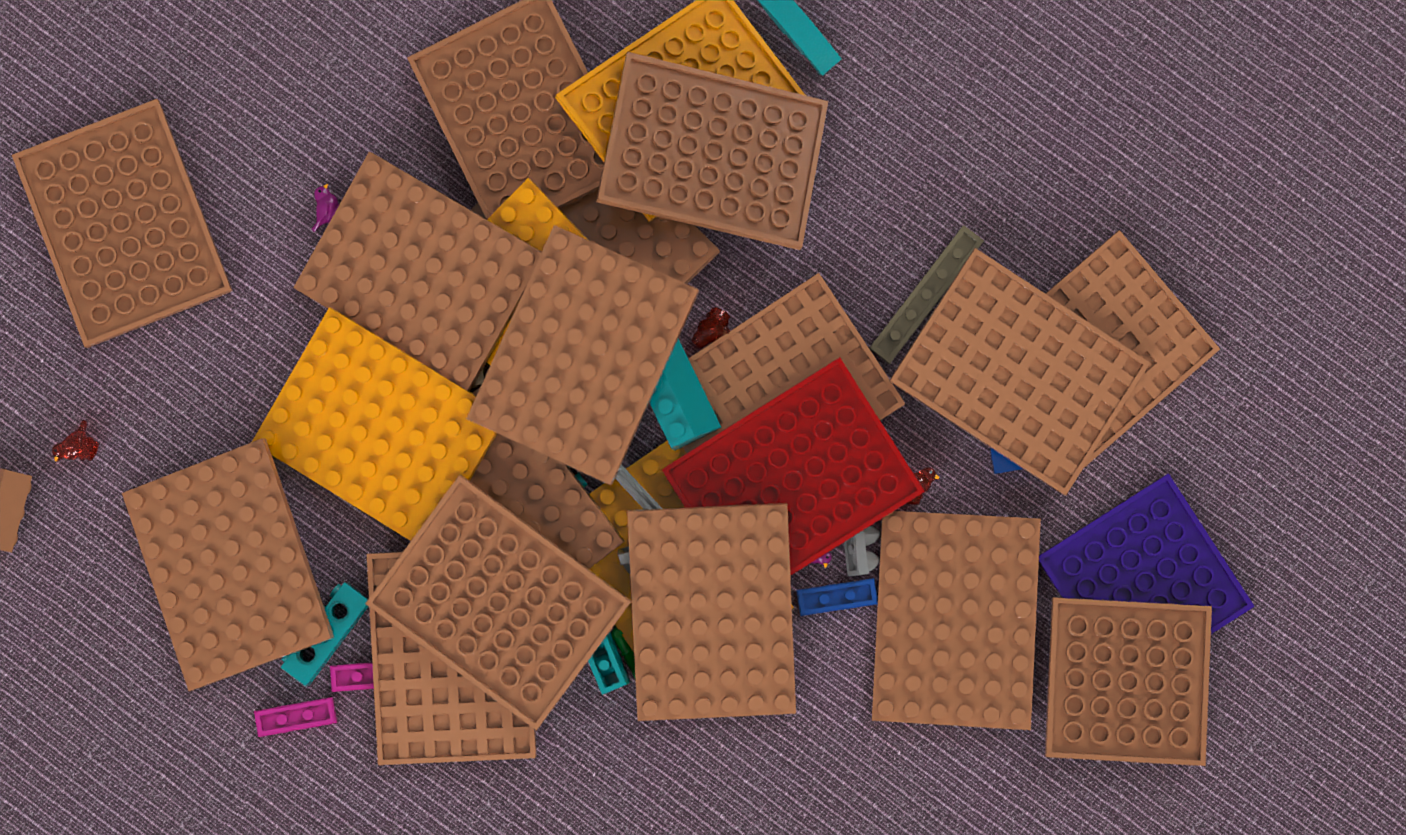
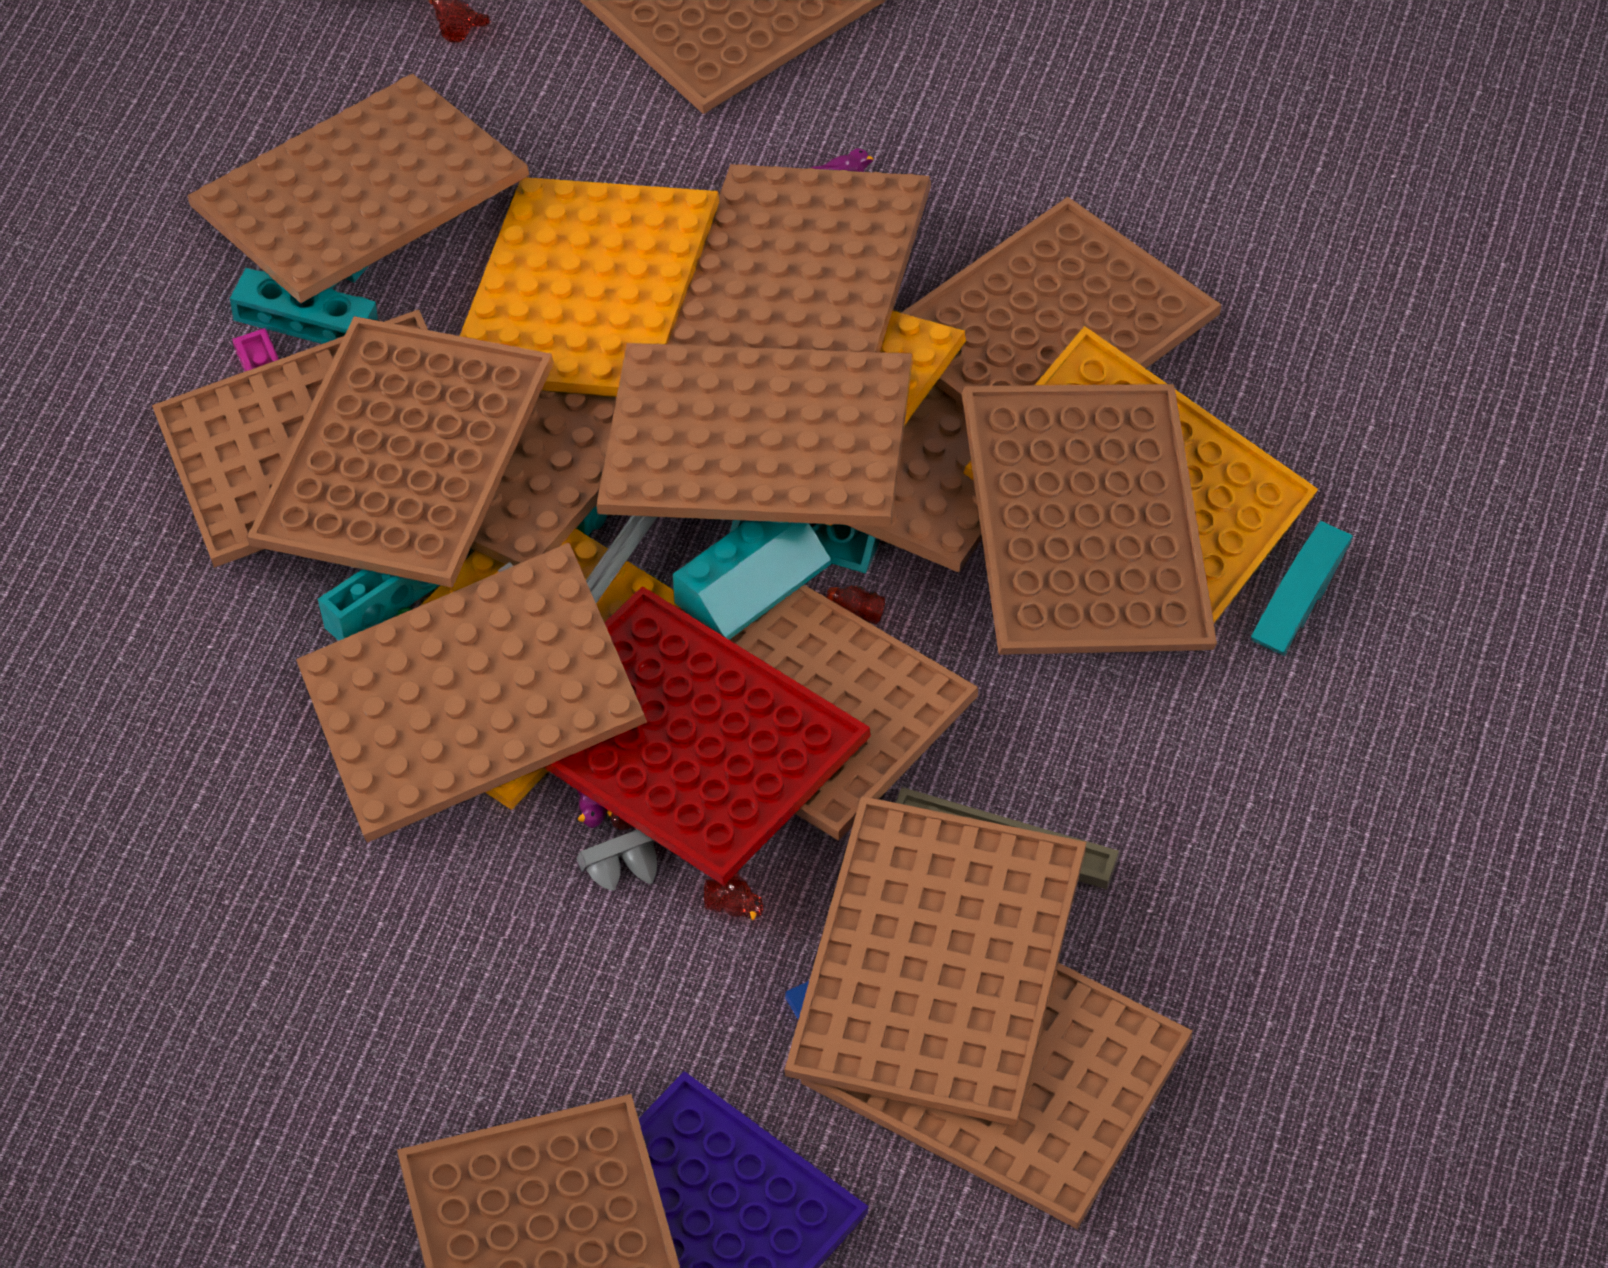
camera: 75 degrees right, 30 degrees down
(295, 717) = (189, 314): dark pink tile -> none
(837, 597) = (543, 853): blue tile -> none
(956, 620) = (559, 999): nougat plate -> none

